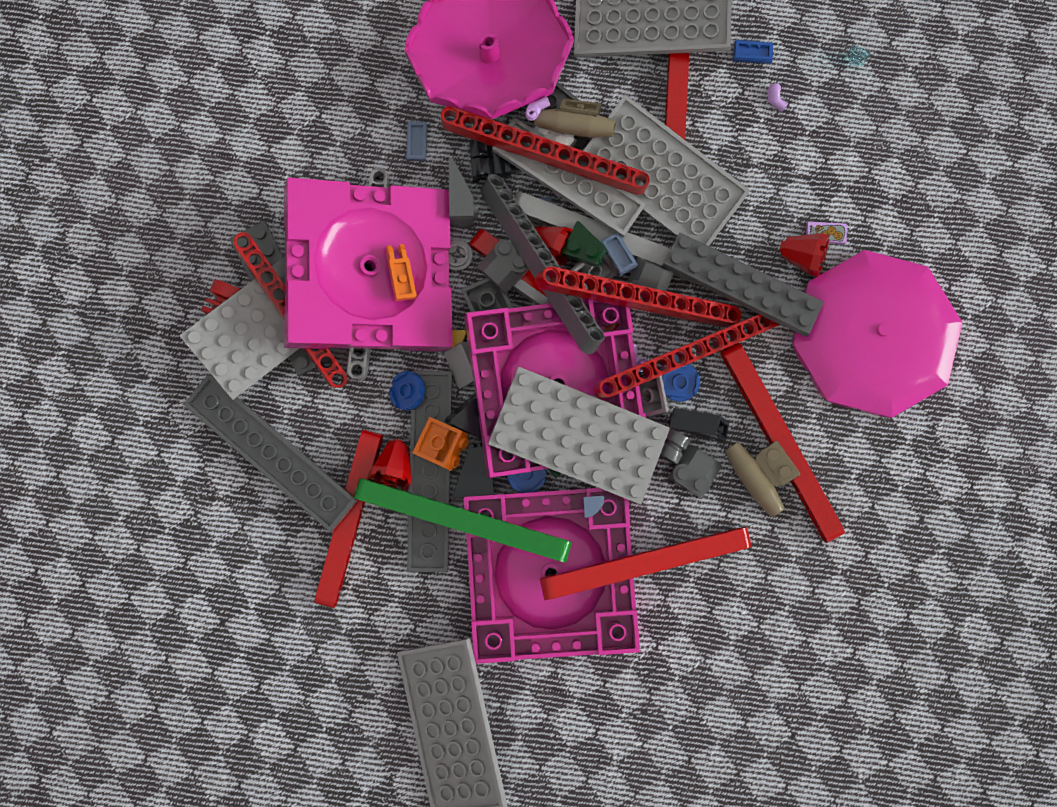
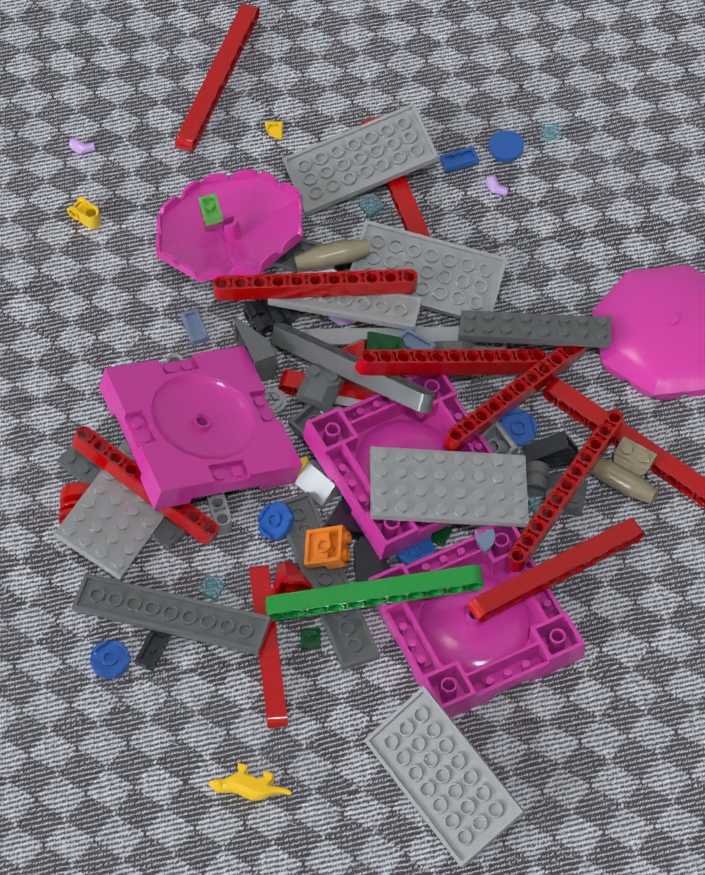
camera: 20 degrees left, 25 degrees down
(200, 470) = (110, 659): none -> blue tile
(240, 479) = (152, 649): none -> black plate
(273, 654) = (248, 785): none -> yellow animal
(321, 435) = (211, 587): none -> clear light blue plate
(392, 525) = (310, 638): none -> dark green tile
(401, 274) = (232, 417): orange hinge -> none
(474, 21) = (210, 209): none -> bright green plate
(535, 107) = (293, 254): lavender arm -> none
(643, 71) = (371, 205): none -> clear light blue plate
(661, 478) = (534, 505): none -> clear light blue plate
(702, 475) = (562, 496): none -> red beam
(806, 252) = (578, 288): red cone -> none
(807, 53) = (506, 146): none -> blue tile
(836, 231) = (589, 271): tile -> none

